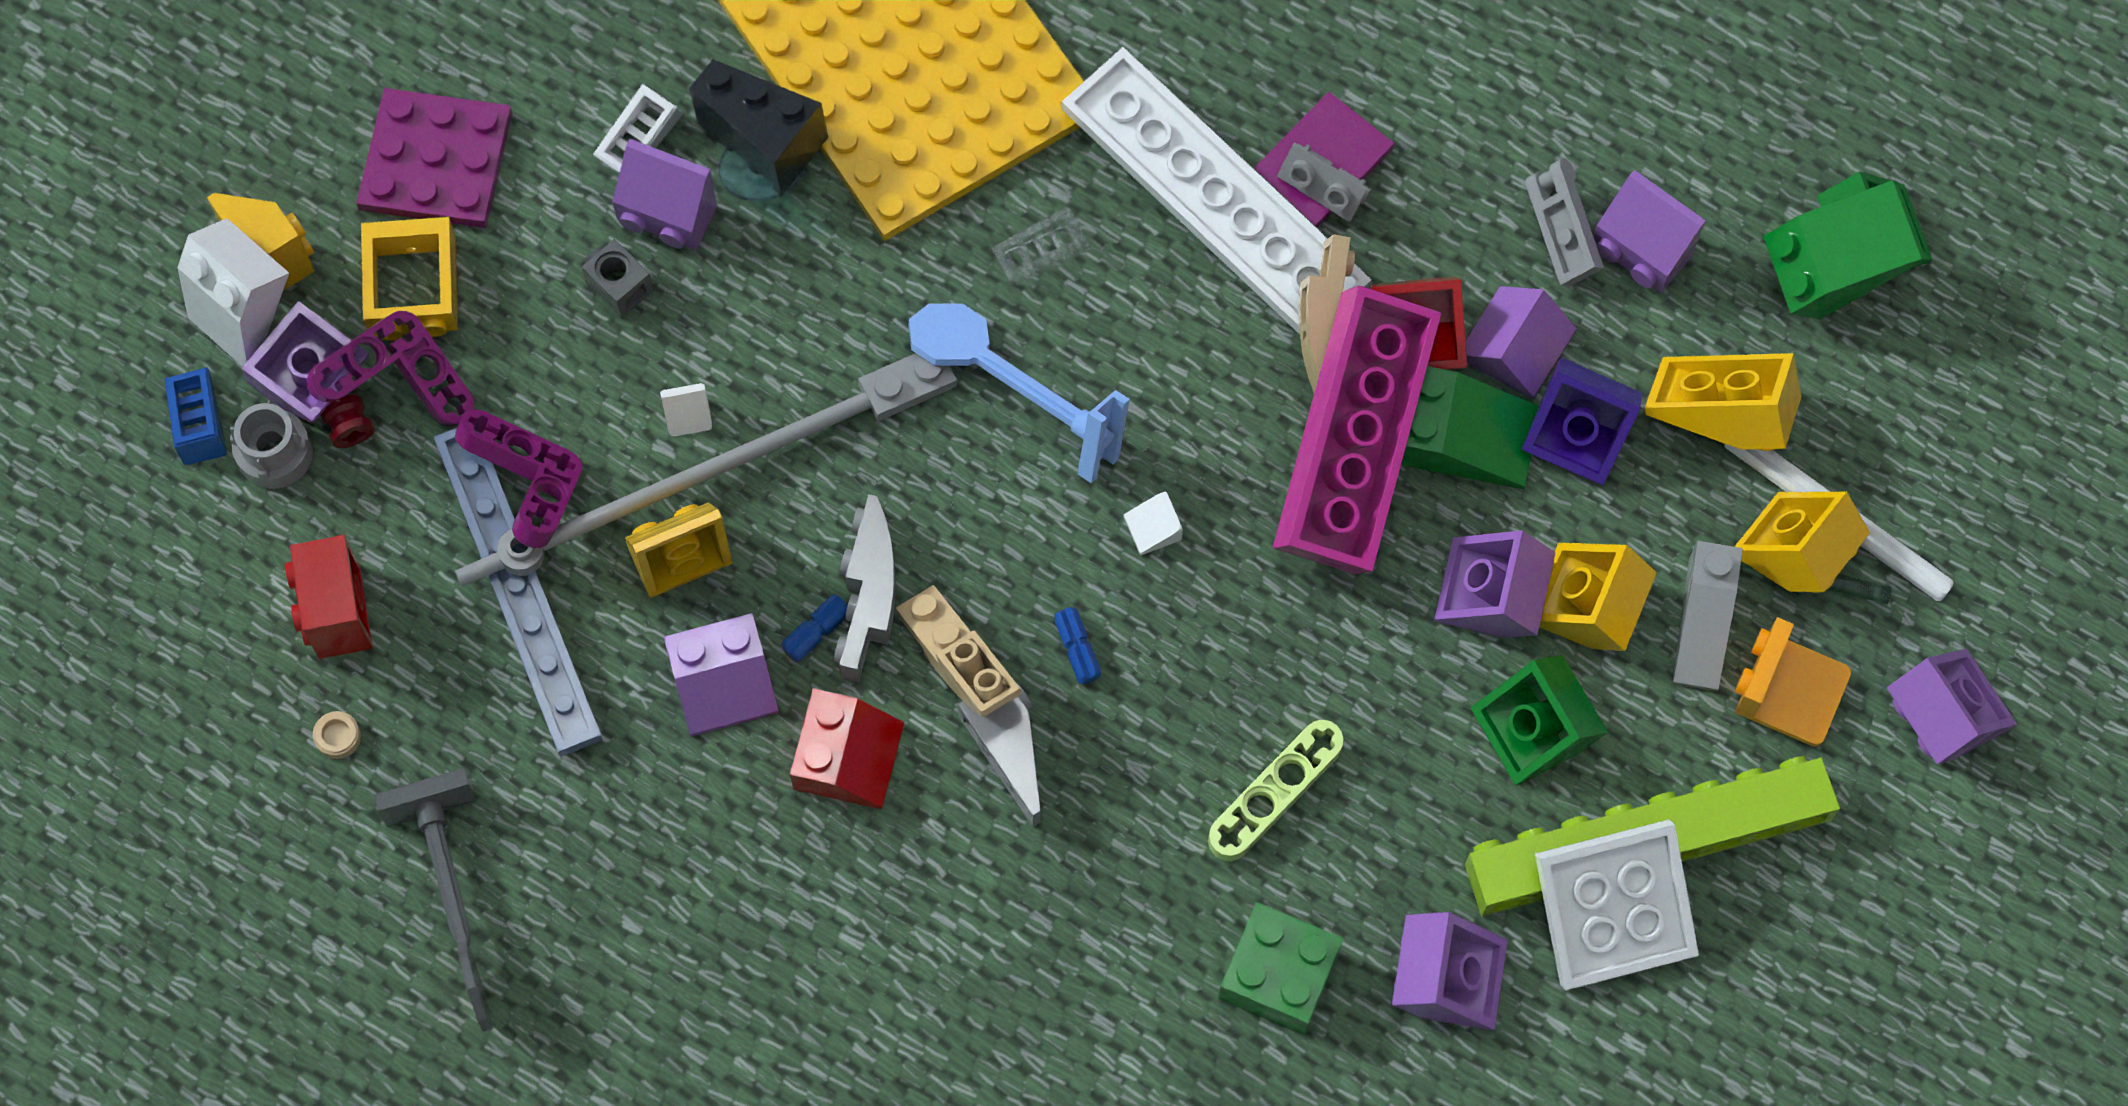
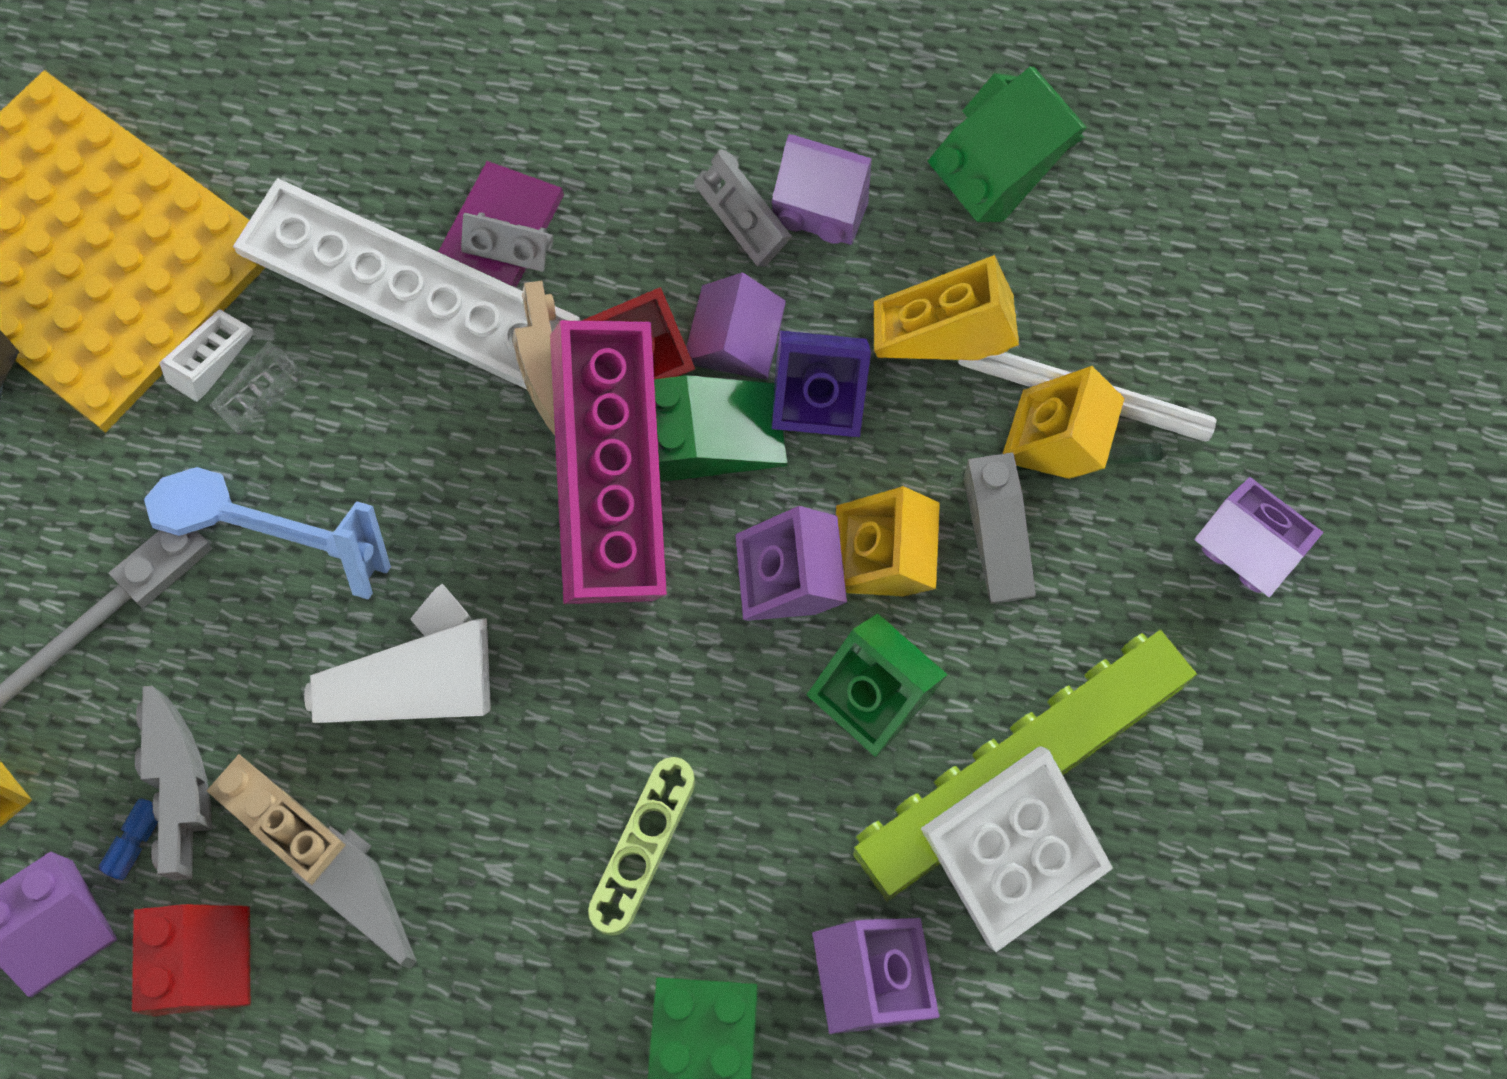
camera: 15 degrees left, 0 degrees up
(979, 211) = (197, 378): none -> white slope
(1079, 653) = (404, 771): blue piece -> none
(1117, 571) = (415, 680): none -> white slope
(1791, 686) = (1103, 569): light orange bracket -> none

